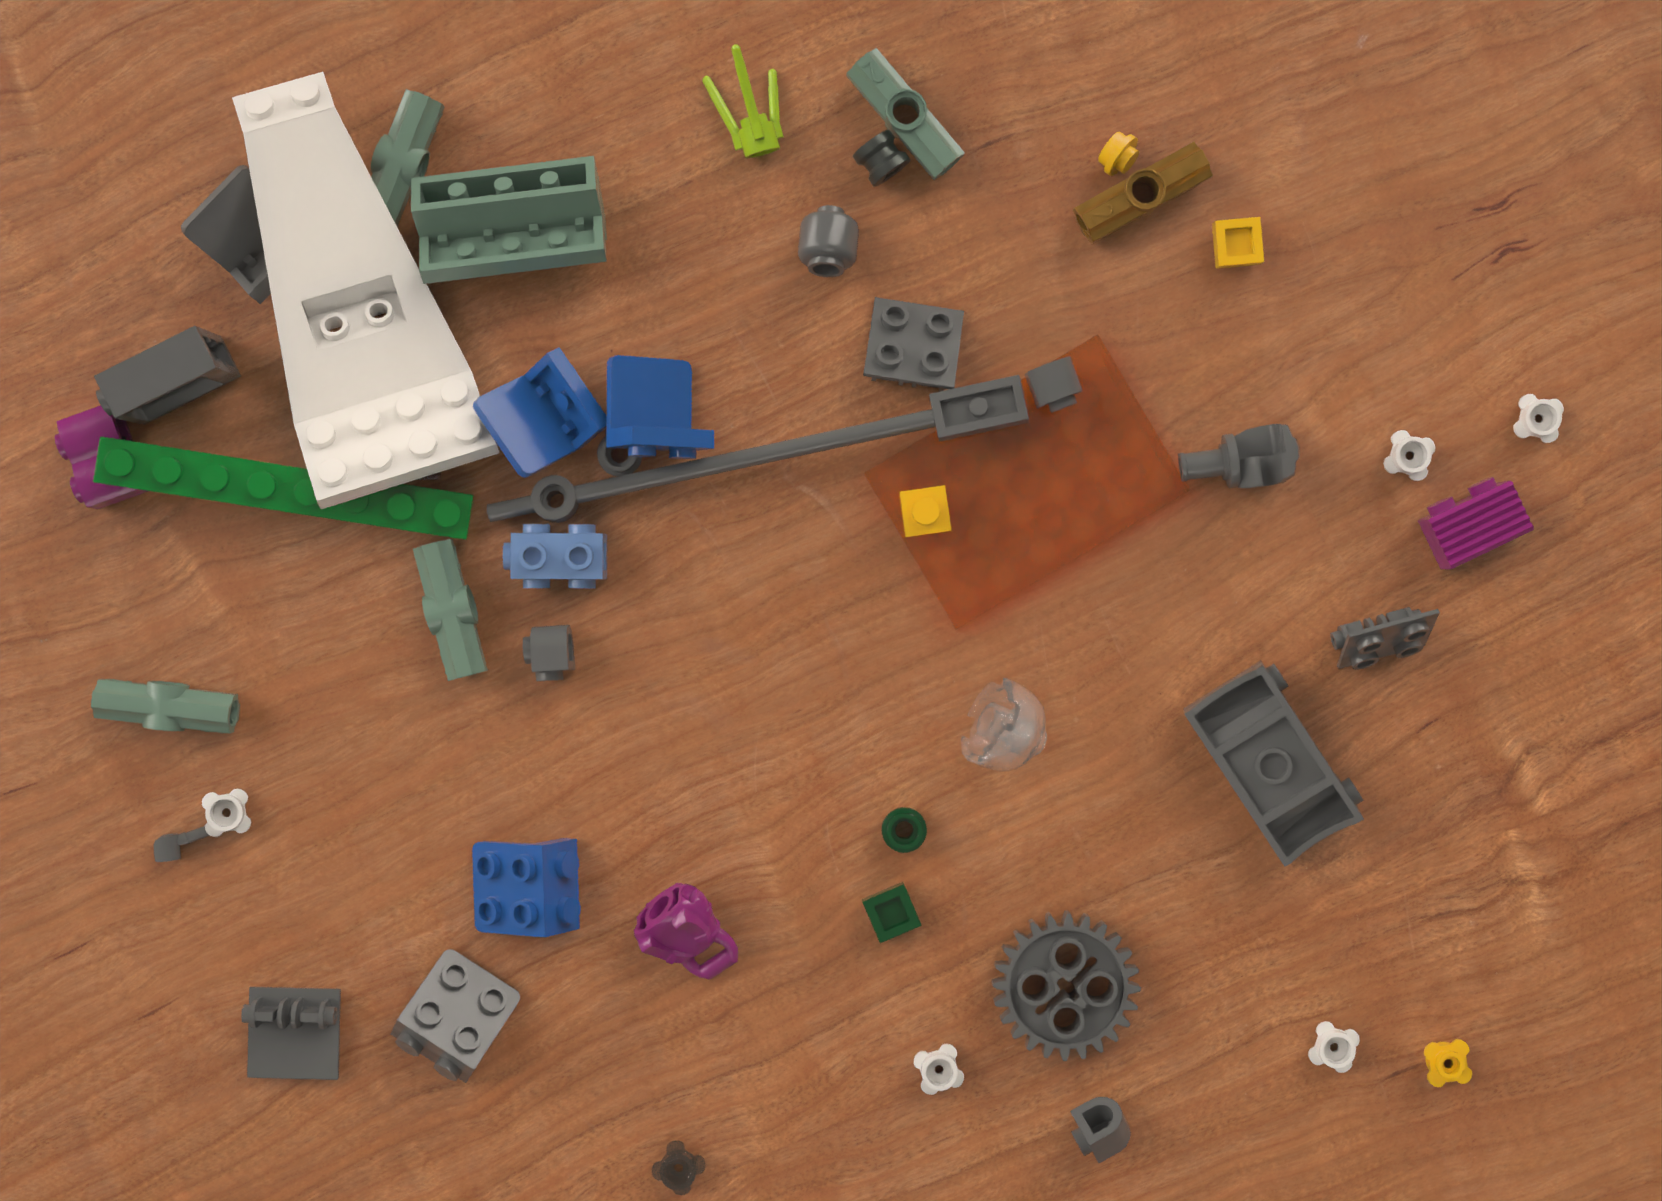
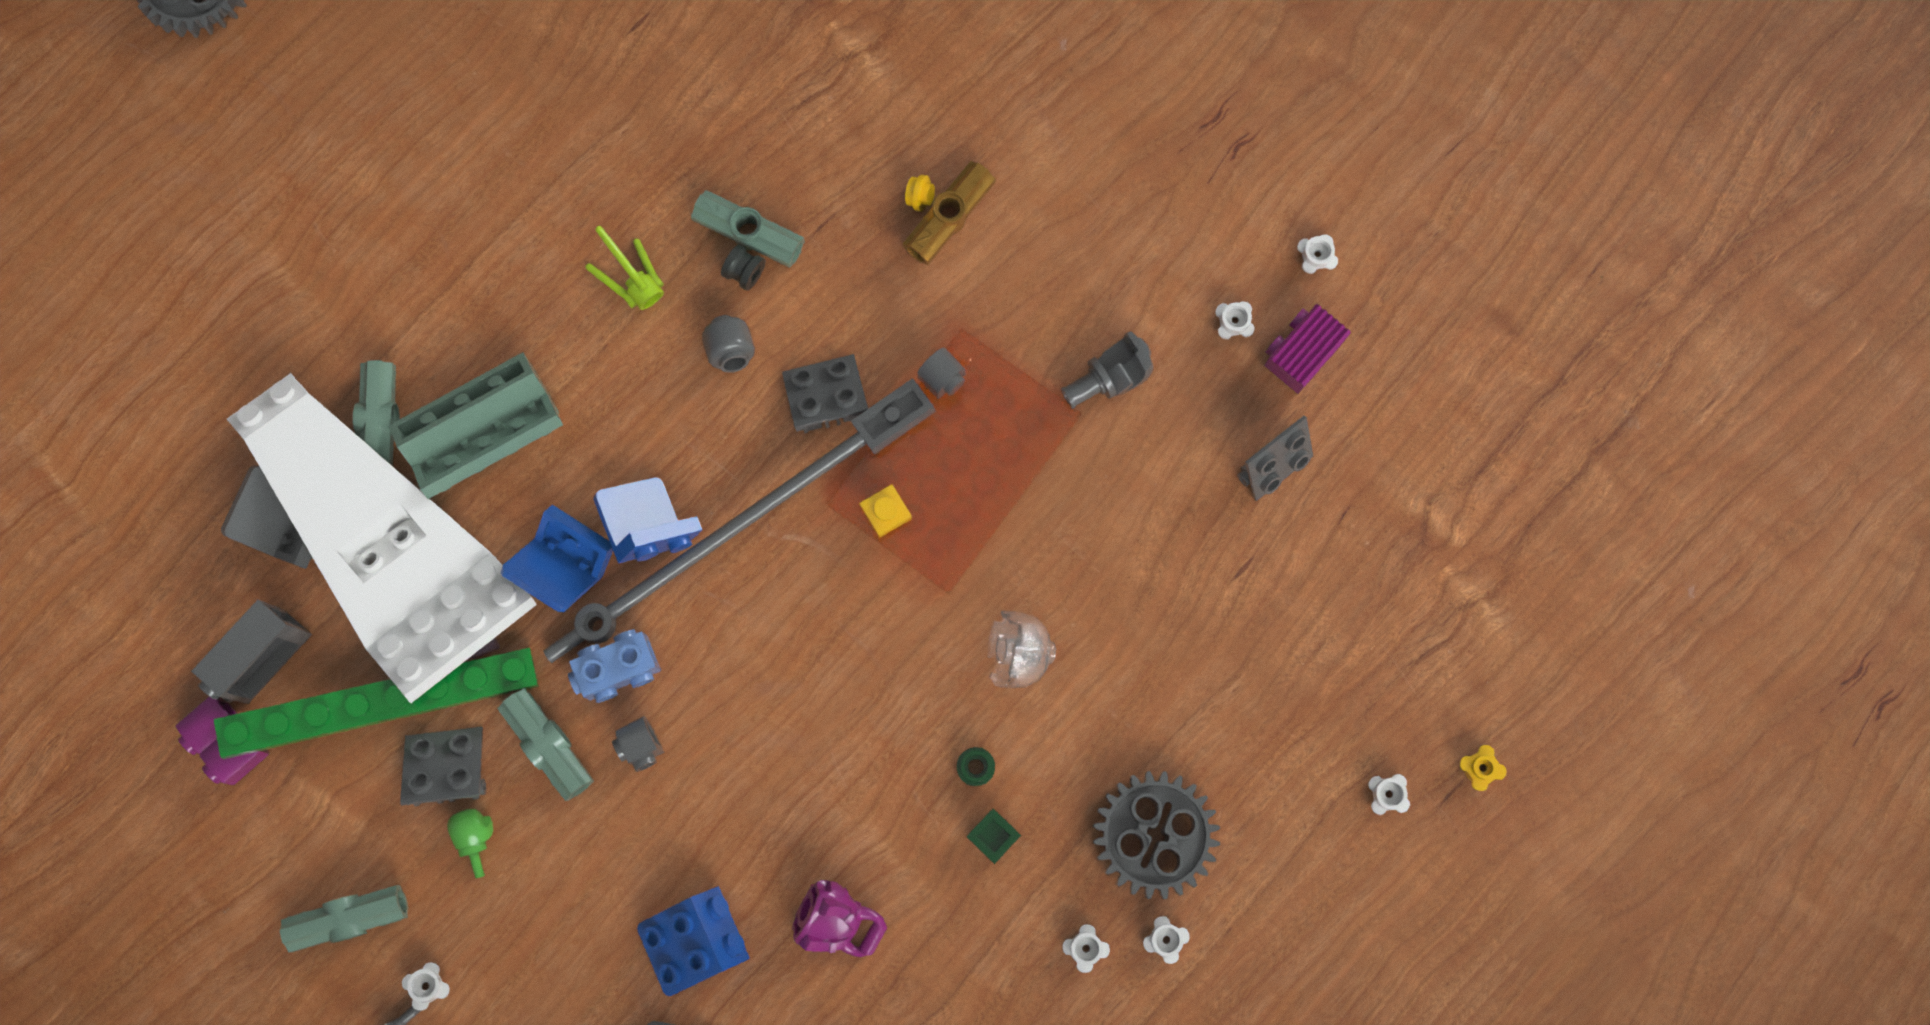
camera: 25 degrees left, 10 degrees down
(330, 586) = (442, 766): none -> dark grey hinge
(331, 672) = (468, 833): none -> bright green piece
(610, 466) = (622, 576): dark grey plate -> none
(1027, 1109) = (1155, 942): none -> white plate
(1100, 1128) = (1234, 938): dark grey plate -> none
(1238, 242) = (1036, 219): yellow plate -> none
(1273, 762) = (1238, 589): dark grey piece -> none

